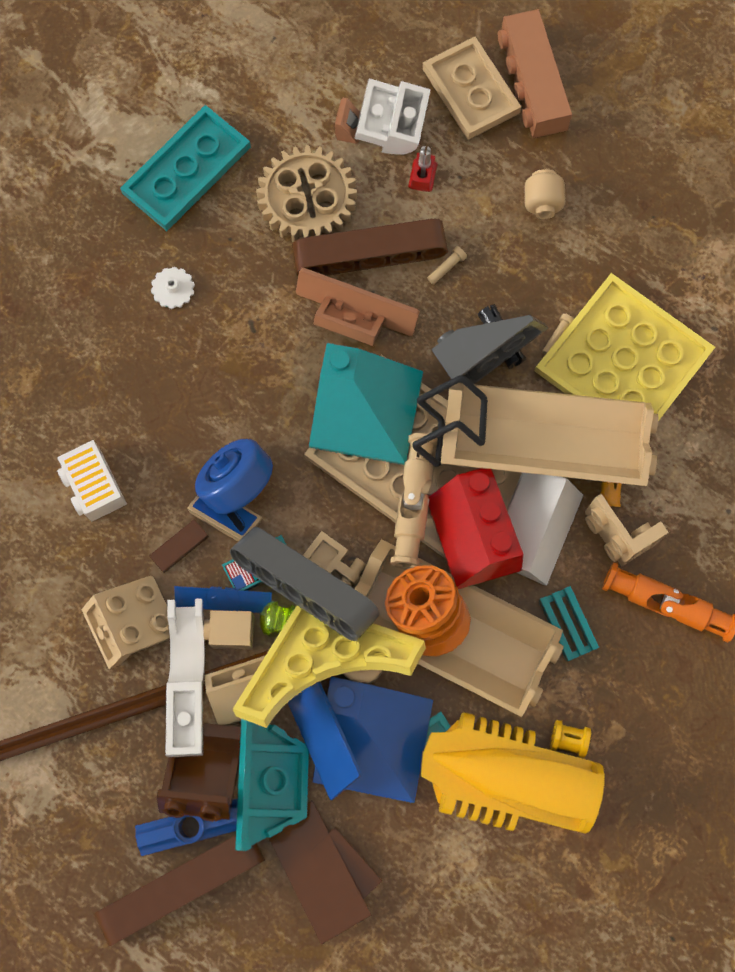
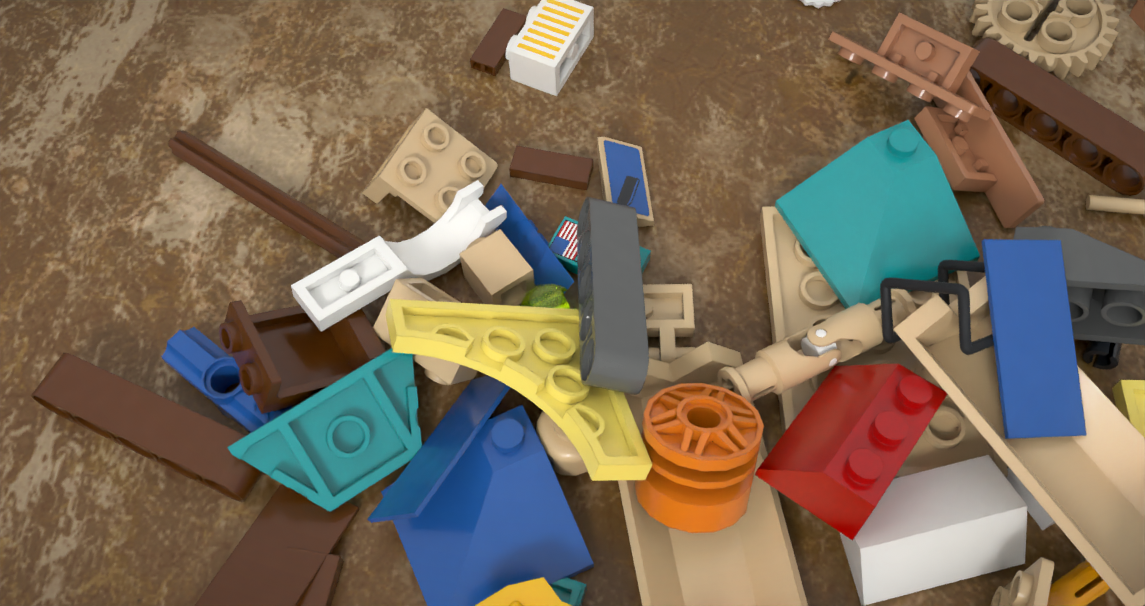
camera: 55 degrees right, 15 degrees down
(58, 508) = (492, 50): none -> reddish brown piece
(234, 476) = (673, 156): blue wheel -> none
(283, 292) = (925, 59): none -> nougat bracket
(495, 402) = (1033, 339): none -> blue piece

